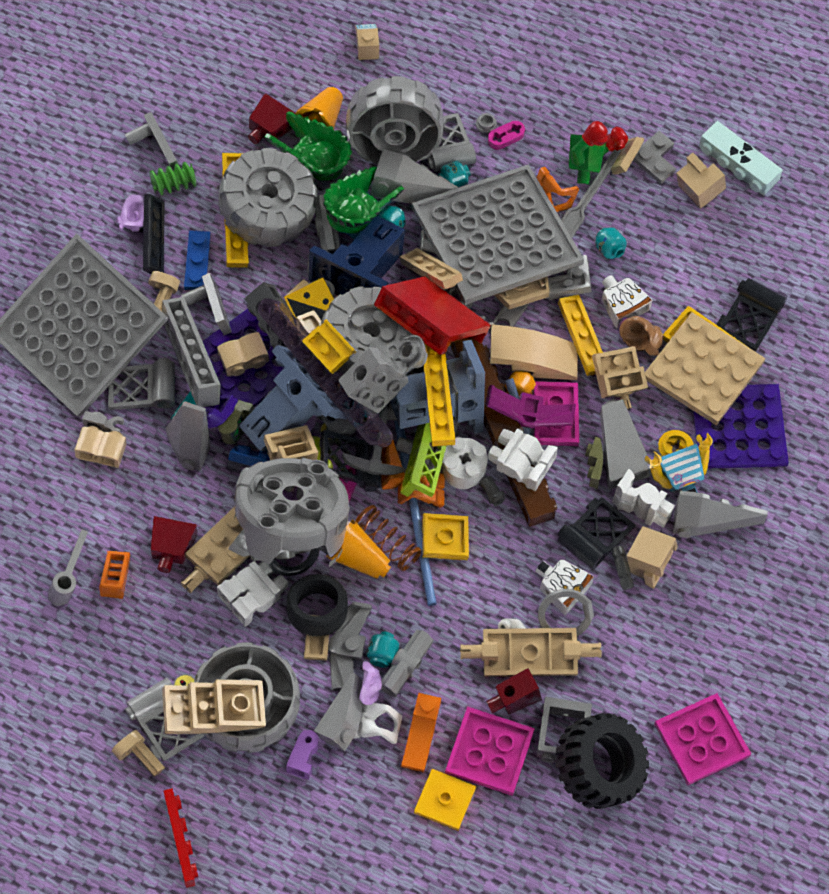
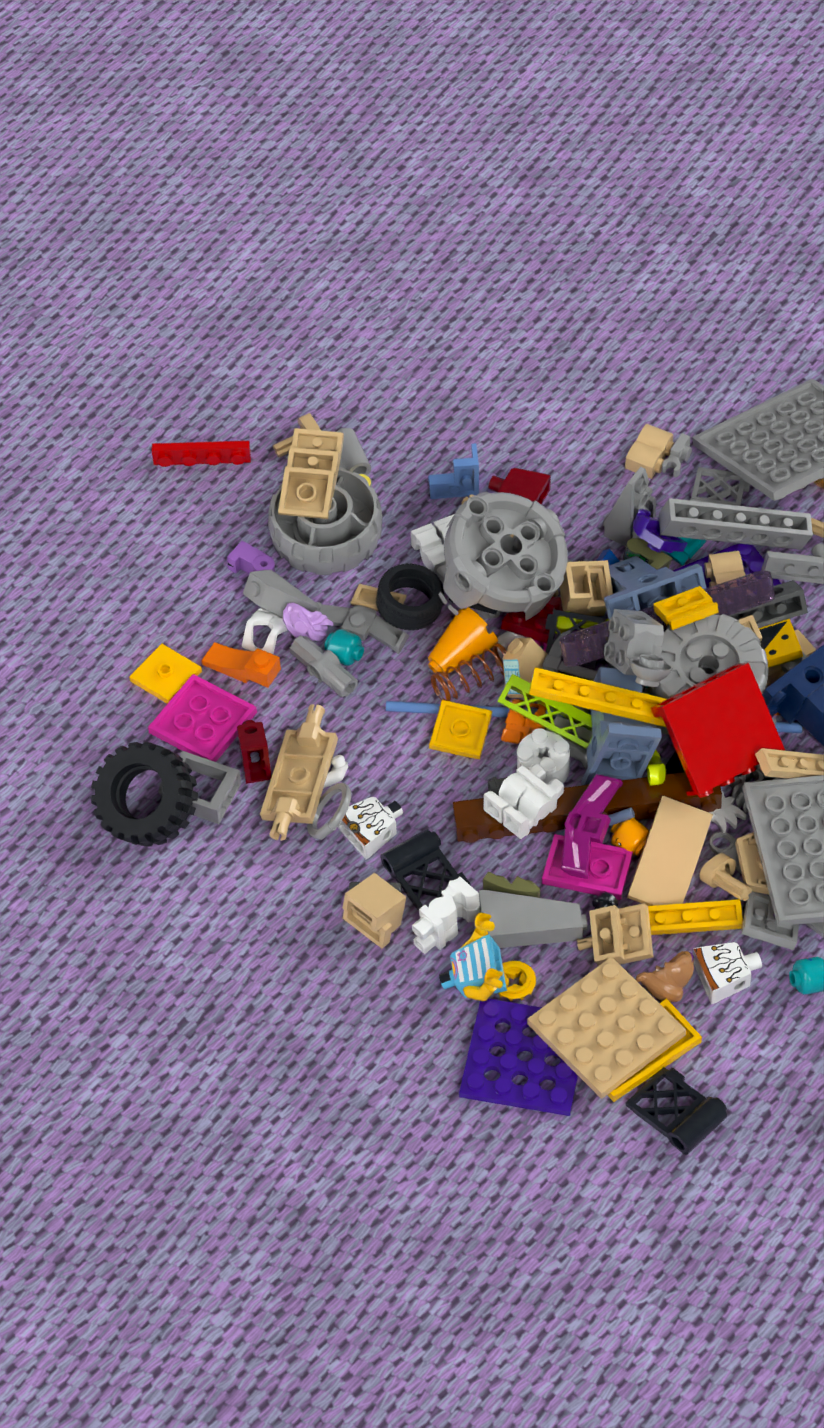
camera: 110 degrees right, 10 degrees down
(64, 582) = (499, 396): light grey piece -> none
(114, 588) = (491, 450): orange slope -> none
(165, 598) = (461, 482): none -> medium blue panel
(379, 493) = (521, 659): none -> tan slope
(539, 320) = (719, 873): none -> tan piece
(589, 393) = (604, 900): none -> black plate
(699, 515) = (412, 973): light grey wedge -> none
(702, 739) = (148, 915): dark pink plate -> none

